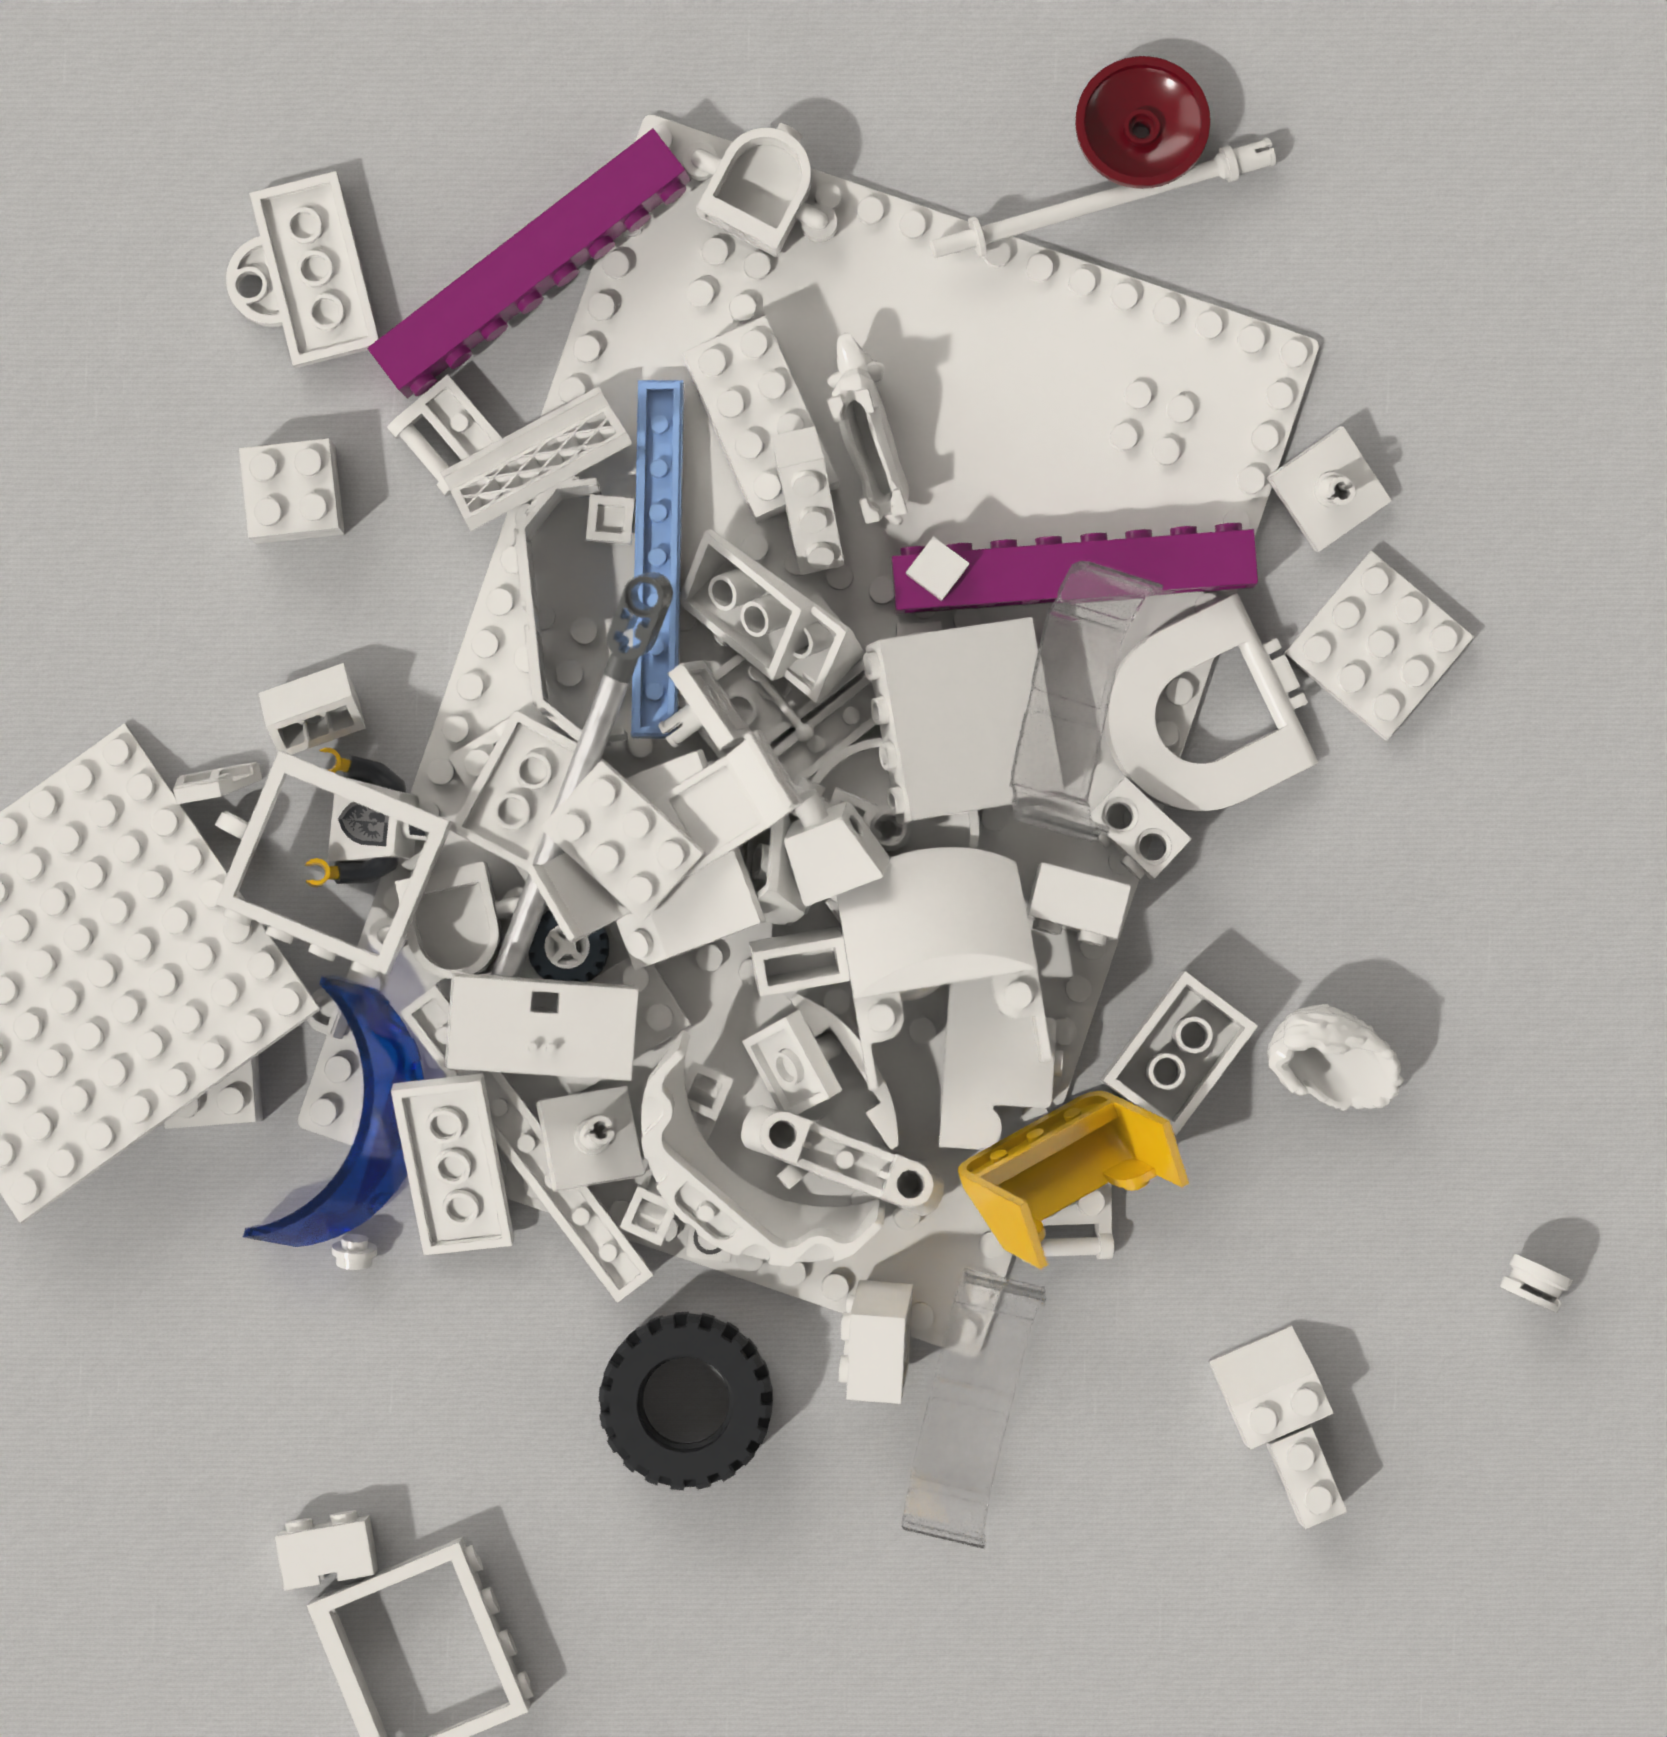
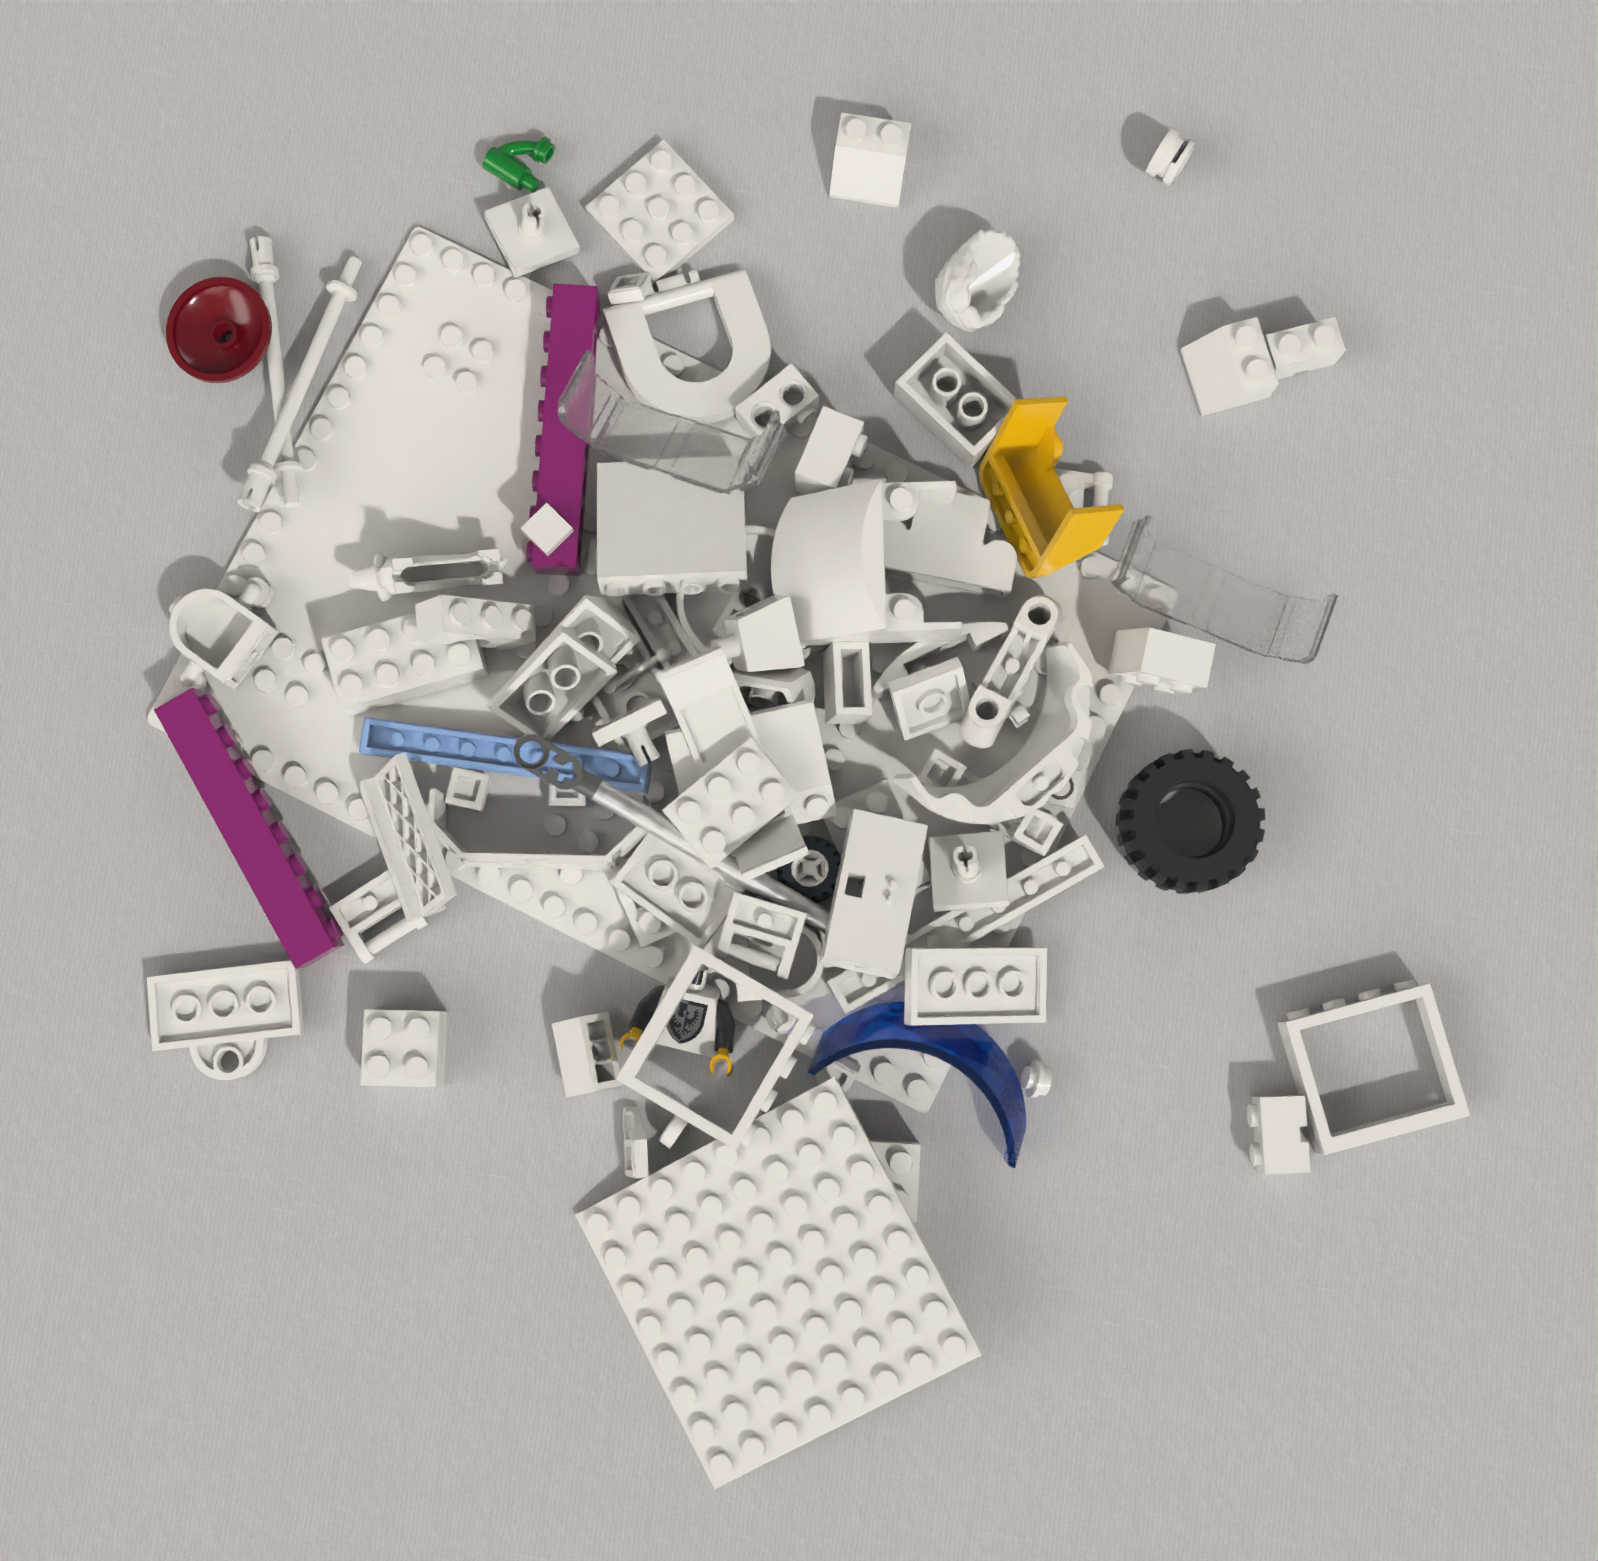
camera: 75 degrees left, 5 degrees down
(490, 898) = (764, 922): none -> white plate
(965, 210) = (262, 472): none -> white bar
(1269, 623) = (629, 288): none -> white tile
(1403, 456) = (502, 164): none -> green plant
(1480, 902) = (870, 159): none -> white slope

